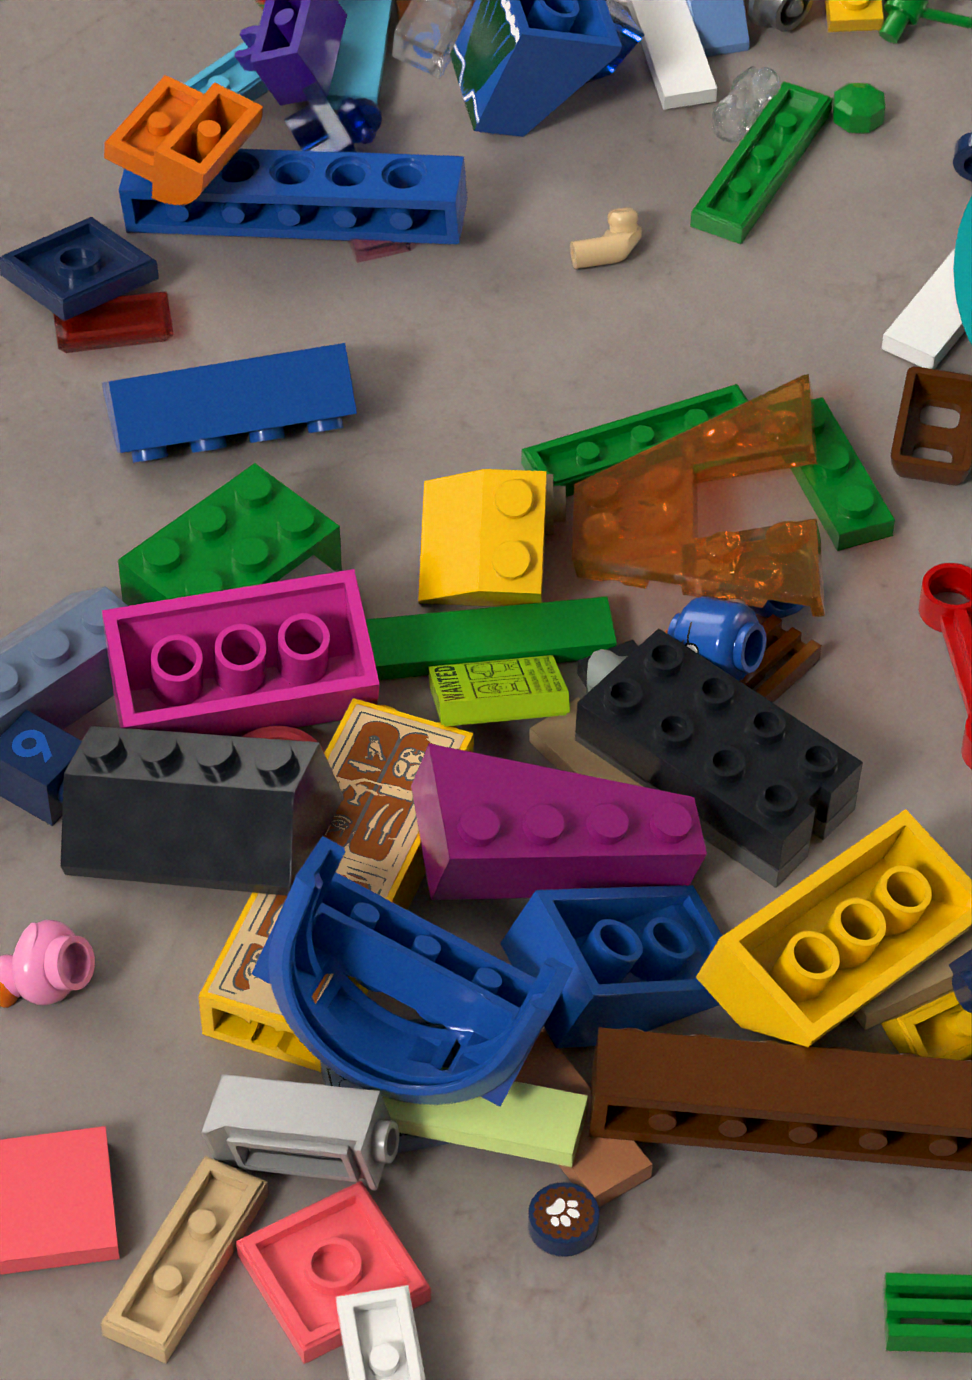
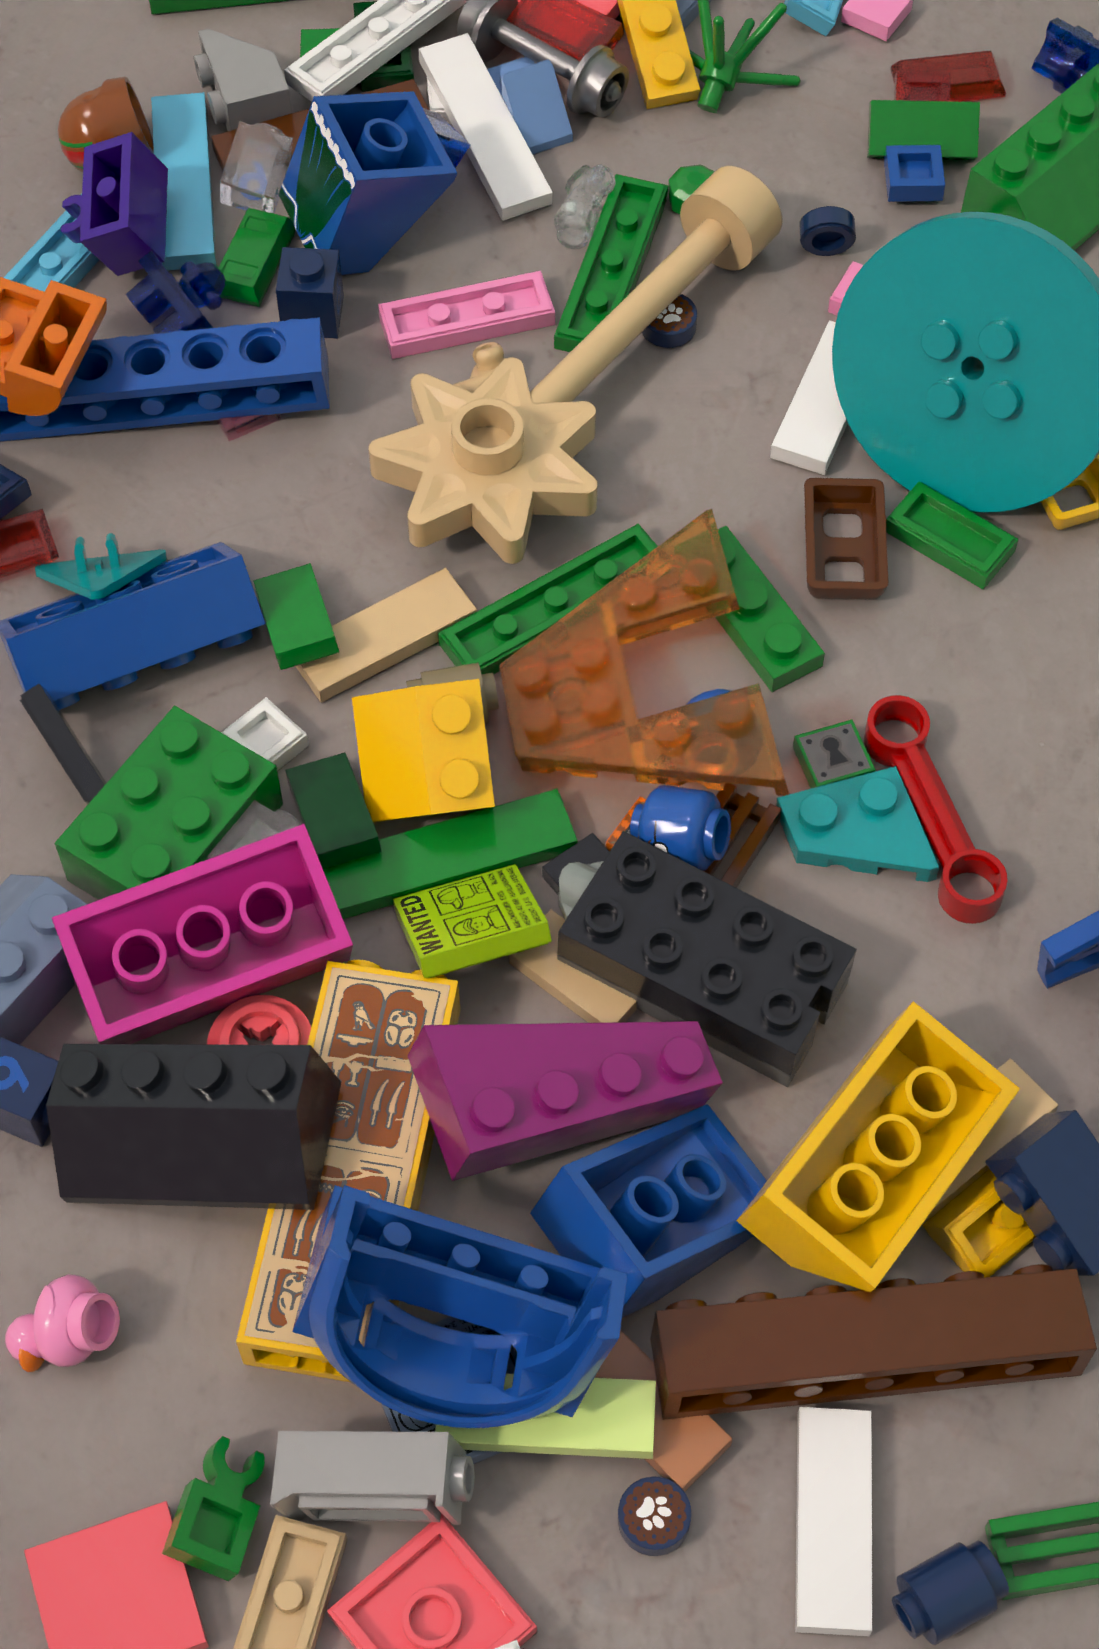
camera: 10 degrees left, 10 degrees up
(142, 476) = (63, 742): none -> black tile
(149, 1144) = (213, 1518): none -> green plate
(210, 352) = (99, 575): none -> teal piece
(346, 509) = (269, 733): none -> white tile
(387, 414) = (296, 616): none -> green tile
(388, 582) = (333, 810): none -> dark green tile
(416, 106) = (254, 255): none -> green tile
(465, 443) = (388, 633): none -> tan tile
(467, 130) = (311, 287): none -> dark blue brick
(610, 184) = (466, 314): none -> bright pink tile
(626, 303) = (510, 450): none -> tan piece
(735, 1253) = (834, 1522): none -> white tile
(807, 214) = (674, 325): none -> tile
(832, 1323) = (949, 1591): none -> dark blue brick
(884, 613) = (832, 754): none -> tile
(894, 674) = (858, 825): none -> teal wing

